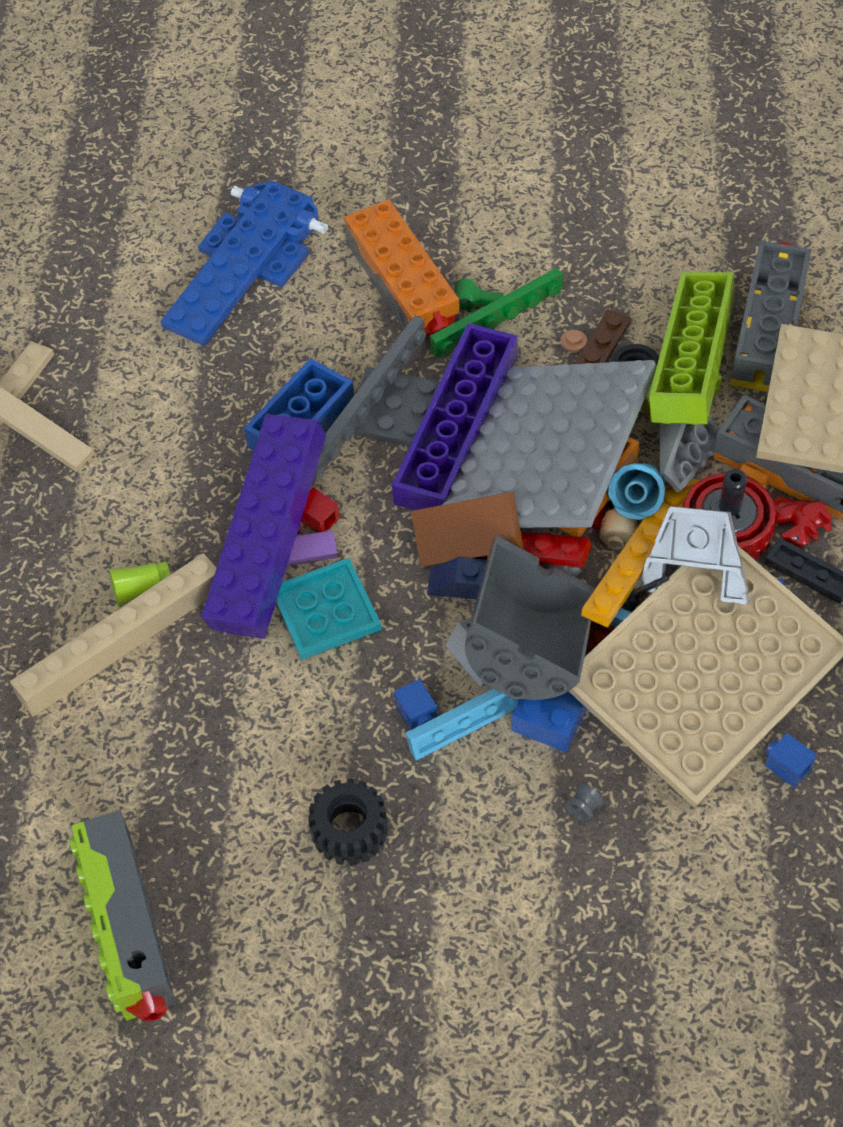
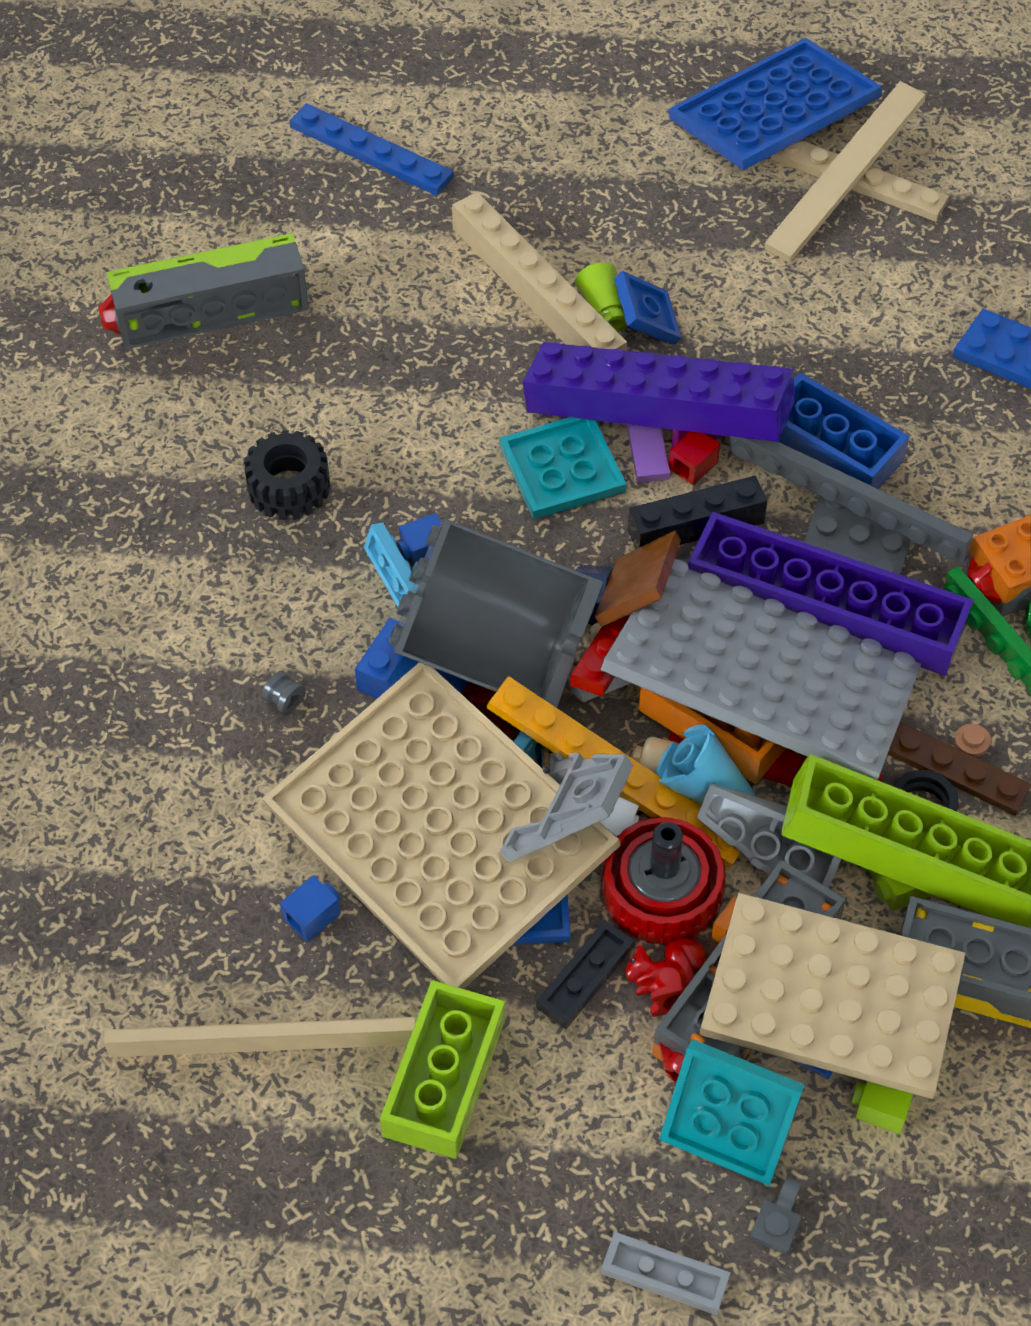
camera: 90 degrees right, 0 degrees up
(155, 545) = (647, 308): none -> blue plate
(382, 507) = (691, 511): none -> black brick

